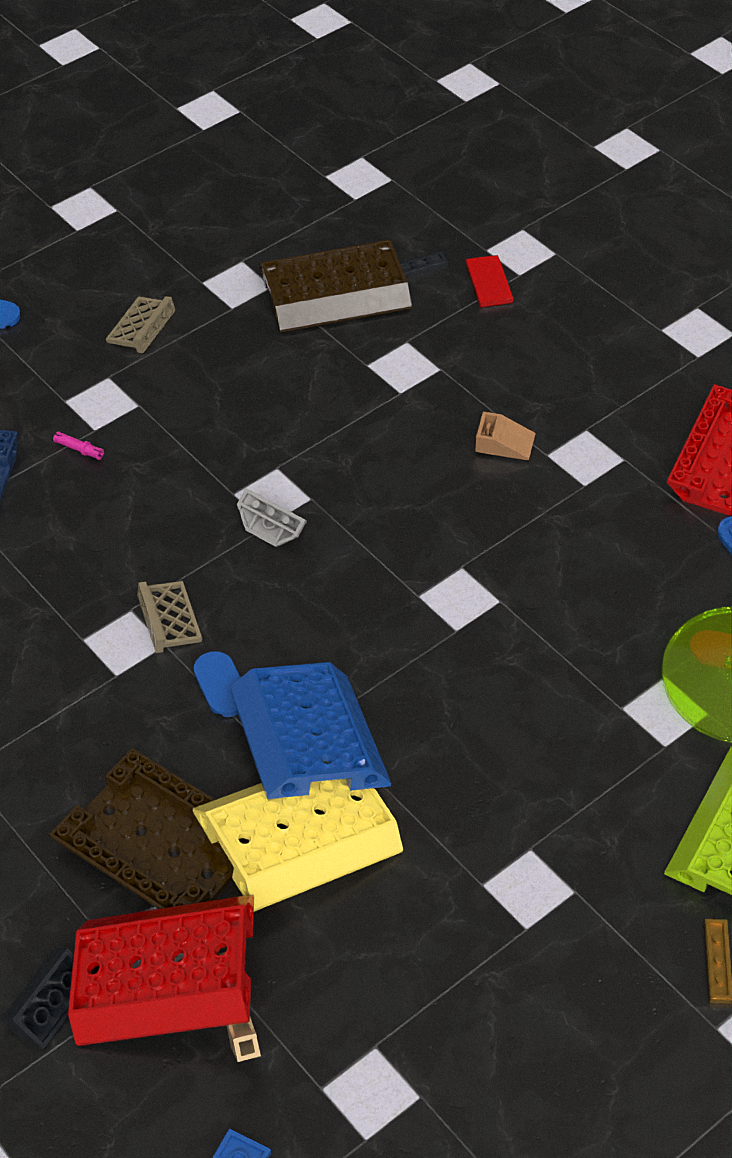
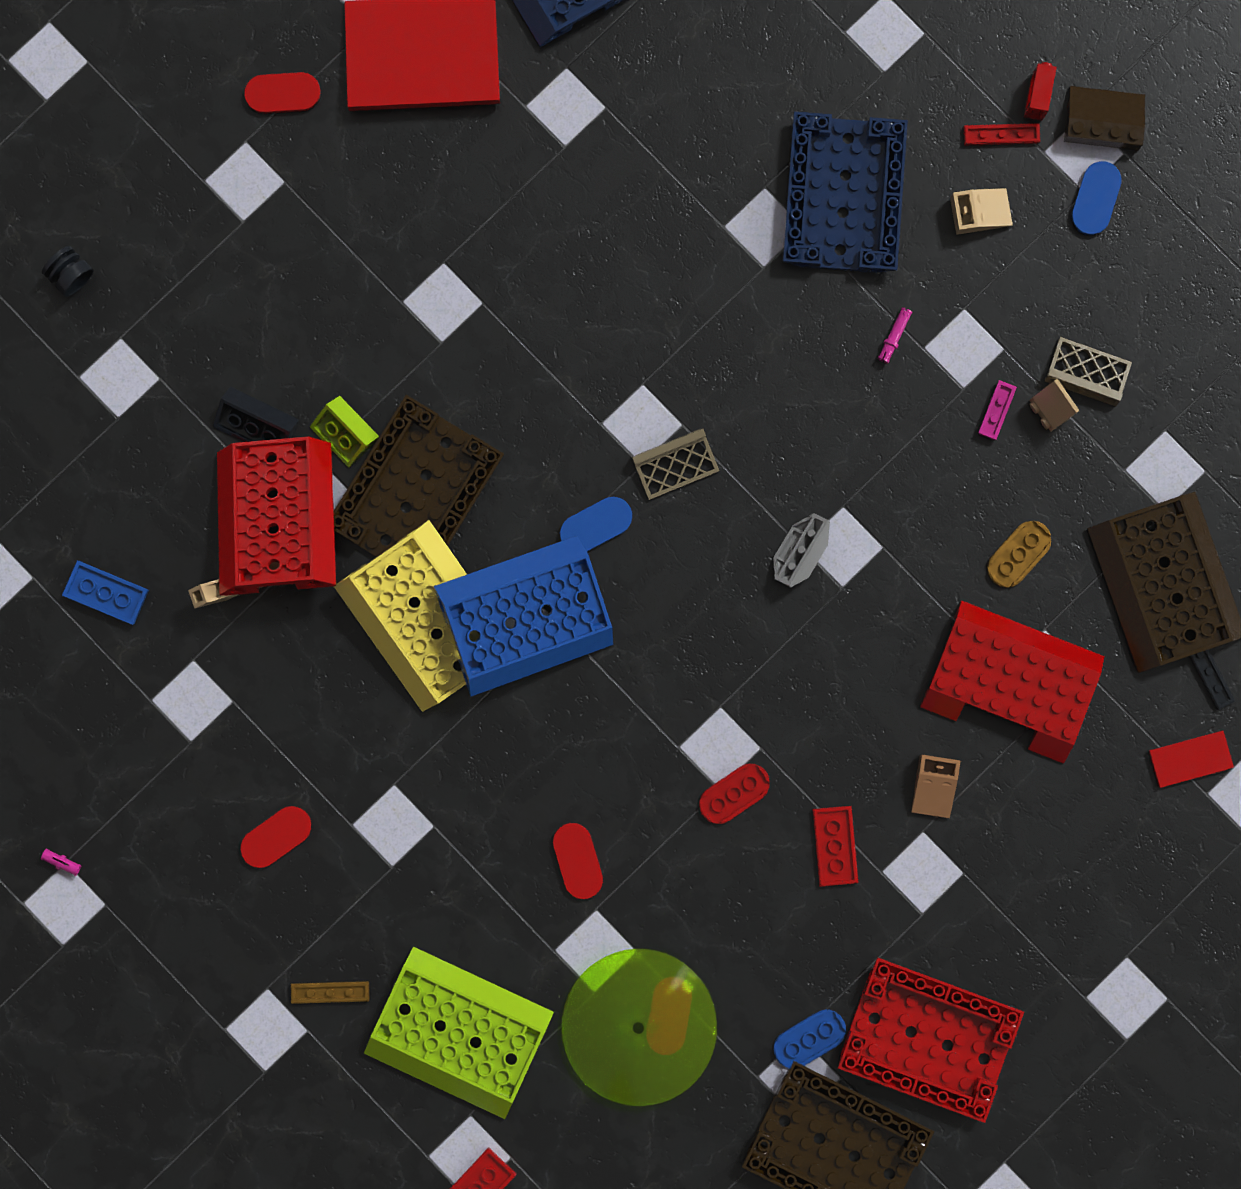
camera: 80 degrees right, 35 degrees up
(75, 904) = (344, 430): none -> lime slope
(163, 381) = (997, 410): none -> dark pink plate
(166, 333) = (1053, 405): none -> tan slope
(296, 376) = (1019, 554): none -> pearl gold tile
(410, 378) = (1016, 677): none -> red slope
(505, 588) = (734, 793): none -> red tile
(538, 1006) = (276, 837): none -> red tile
(559, 516) = (835, 846): none -> red tile
(570, 718) = (578, 860): none -> red tile

